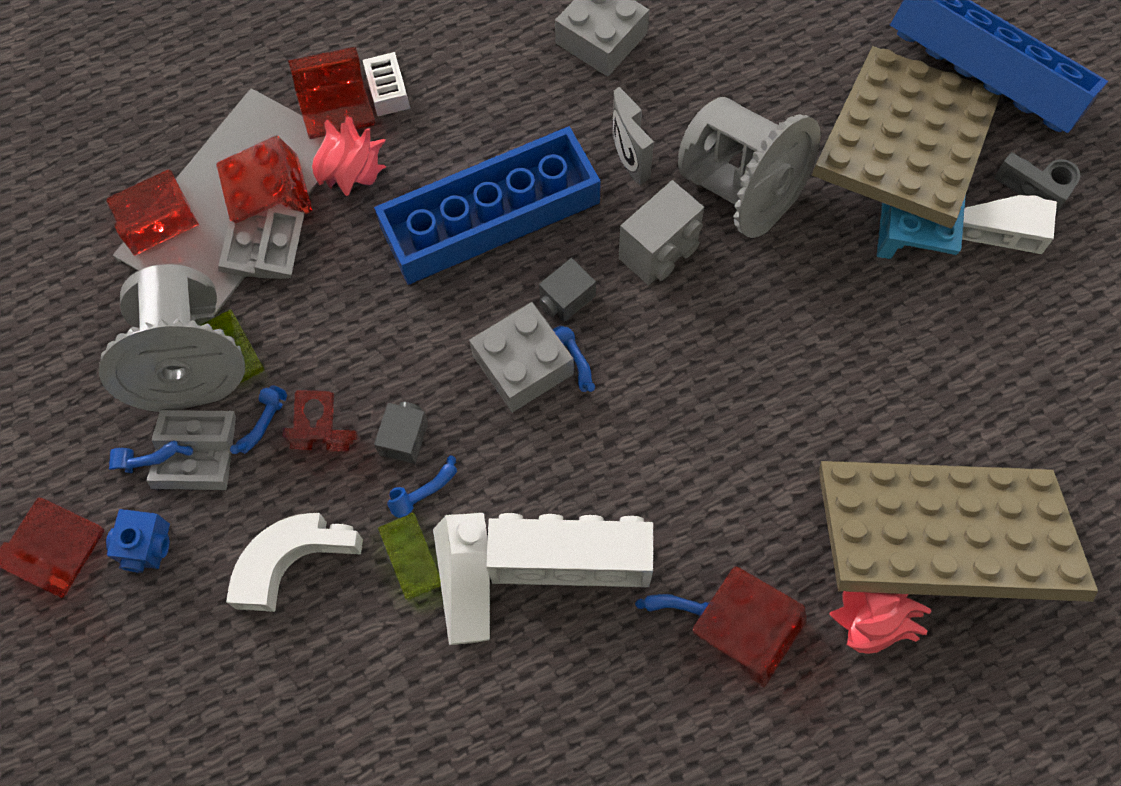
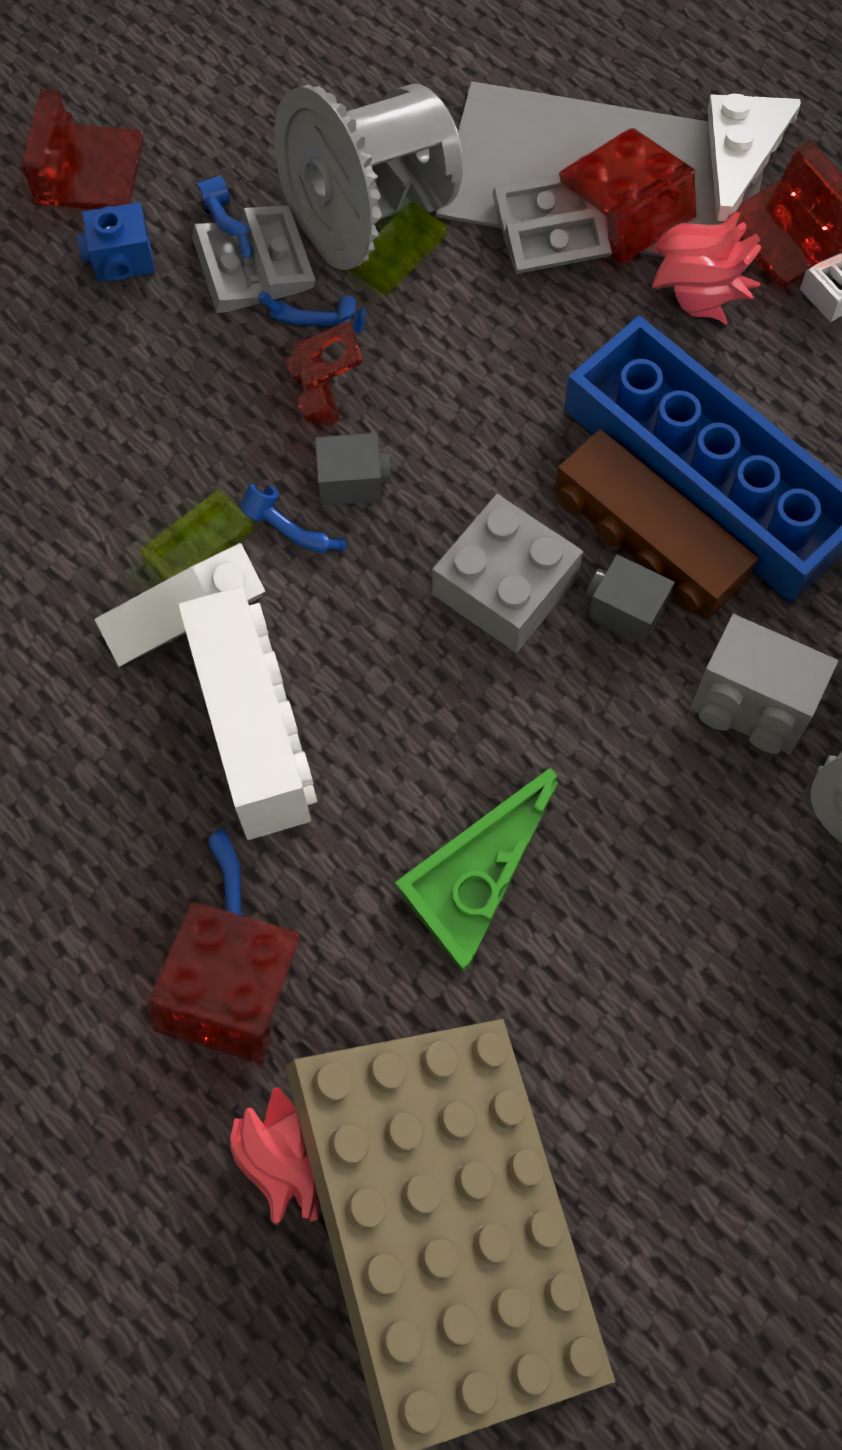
camera: 70 degrees right, 0 degrees up
(151, 212) = (537, 91): clear red bracket -> none
(253, 103) = (741, 141): none -> white wing
(271, 552) = (141, 382): white arch -> none
(518, 258) = (653, 524): none -> reddish brown brick
(567, 337) = (561, 618): blue piece -> none
(724, 455) = (466, 879): none -> bright green wing

